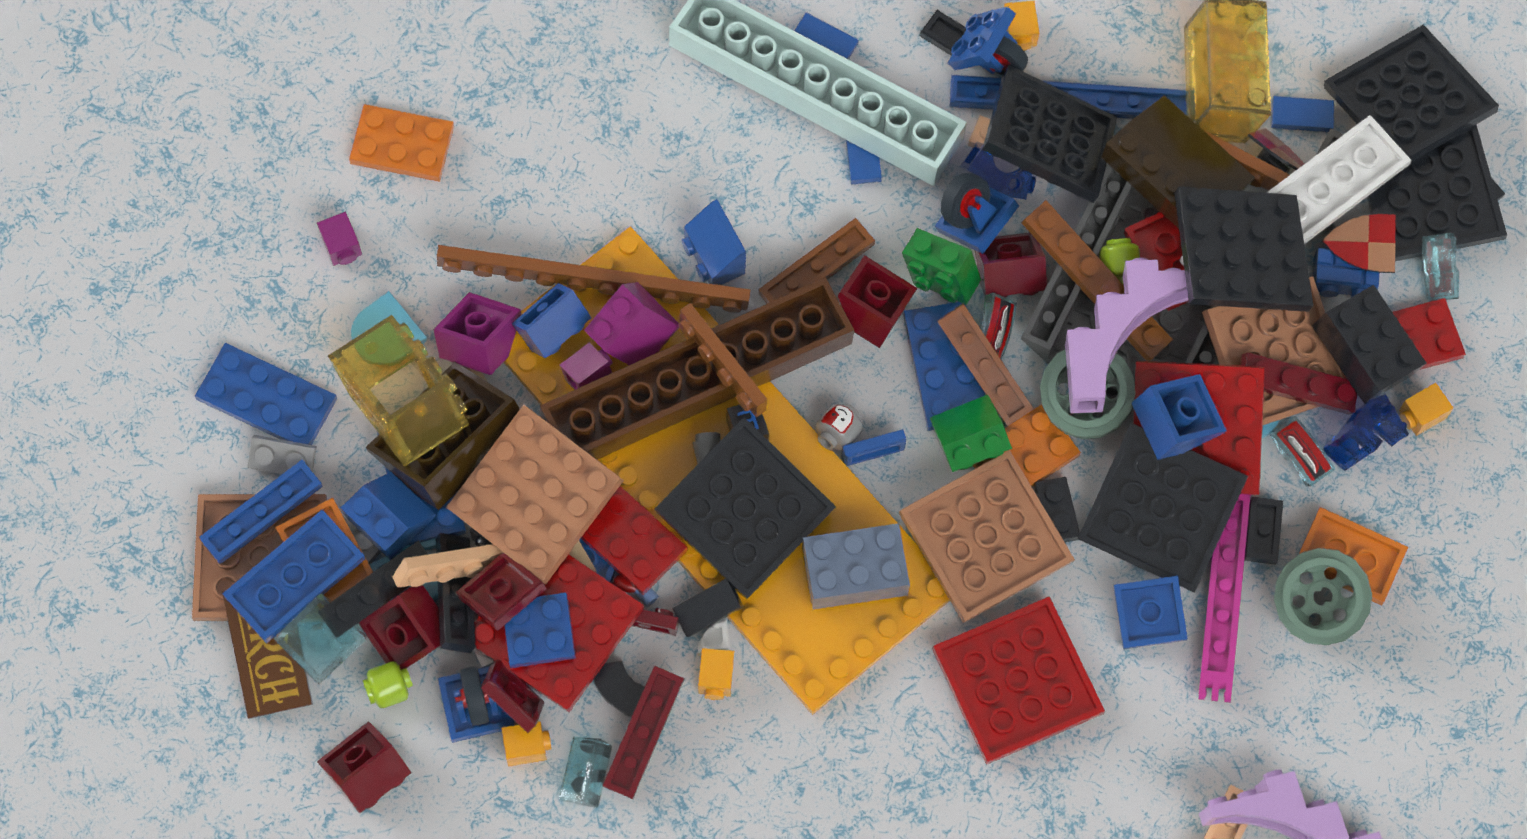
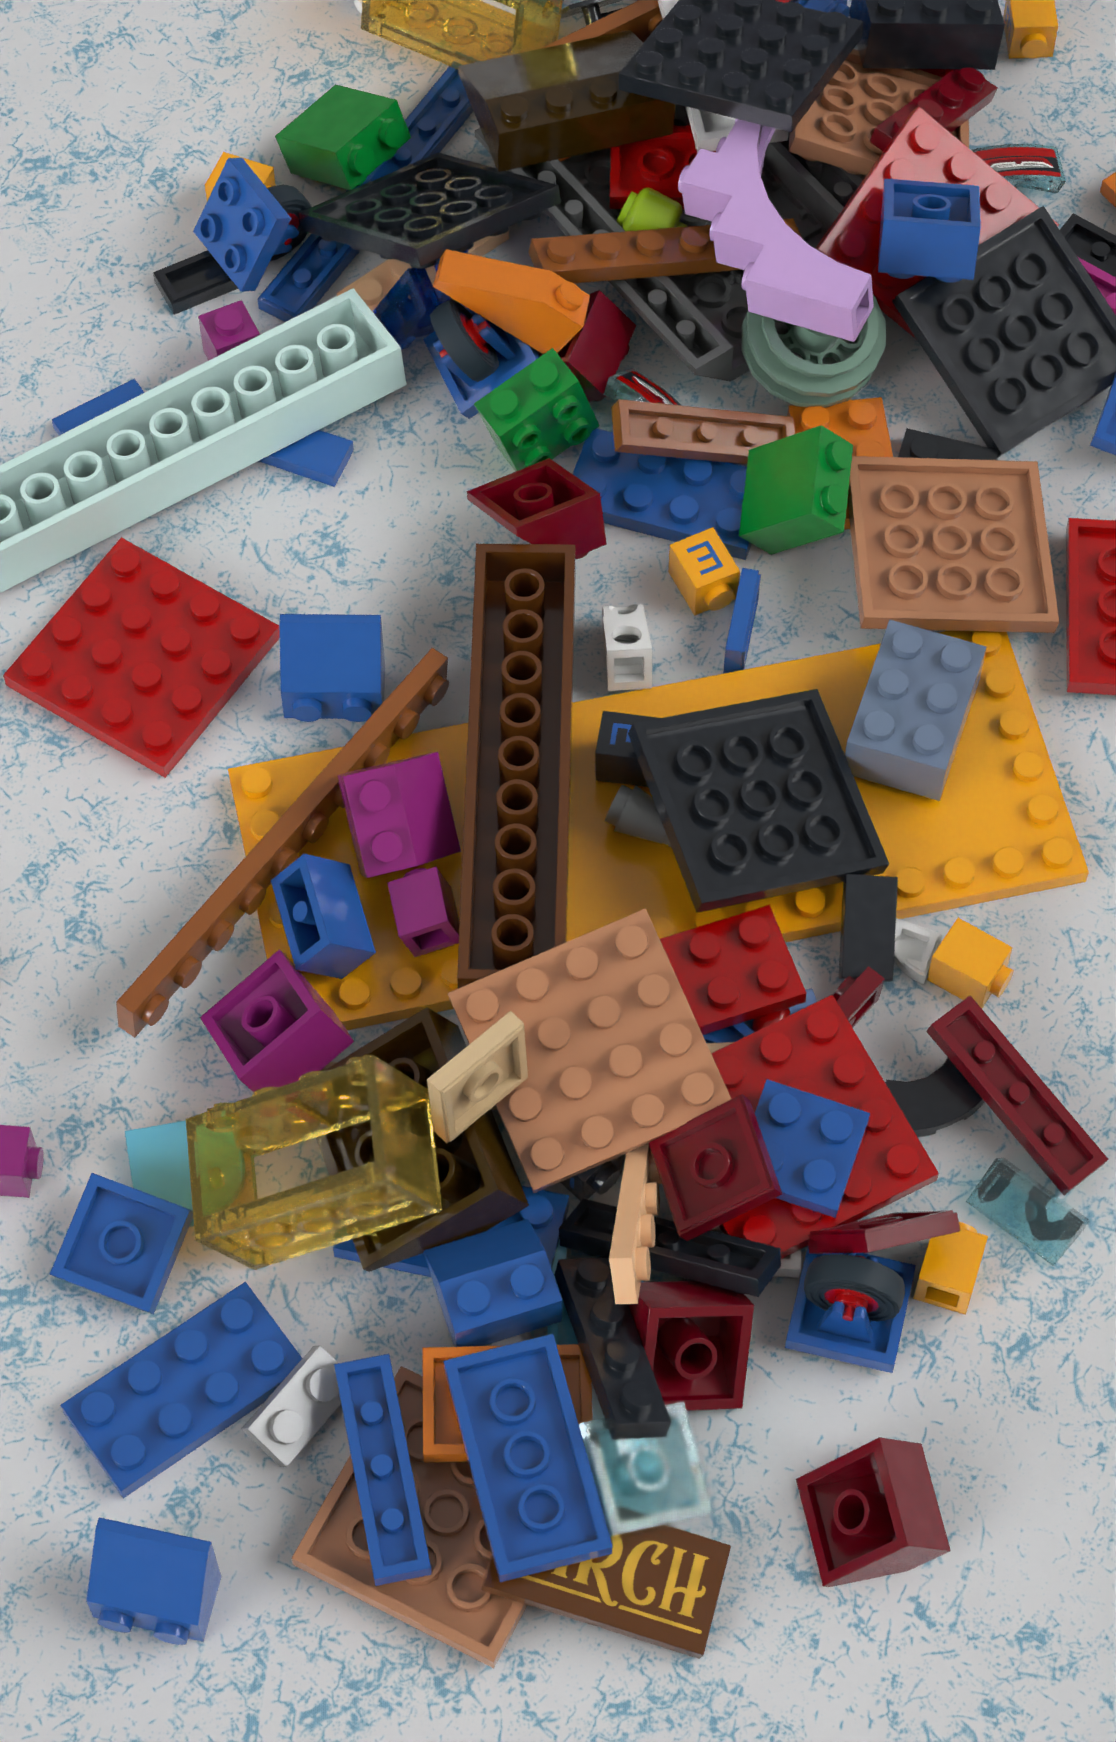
camera: 60 degrees left, 10 degrees down
(150, 435) = (152, 1581): none -> blue slope
(322, 322) = (122, 1243): none -> blue plate
(387, 684) = (759, 1417): lime head -> none
(468, 442) = (478, 1077): none -> tan tile
(680, 144) = (142, 656): none -> red plate
(728, 368) = (533, 708): dark orange plate -> none
(821, 261) = (434, 571): dark orange plate -> none
(821, 392) = (627, 648): none -> white leg
(838, 426) = (690, 646): light grey head -> none
(897, 410) = (704, 571): none -> light orange brick
(909, 73) = (226, 329): none -> magenta brick
(1000, 210) = (515, 297): none -> orange slope
(1085, 59) = (343, 137): none -> green brick
(1372, 418) = (1022, 75): clear blue tile -> none

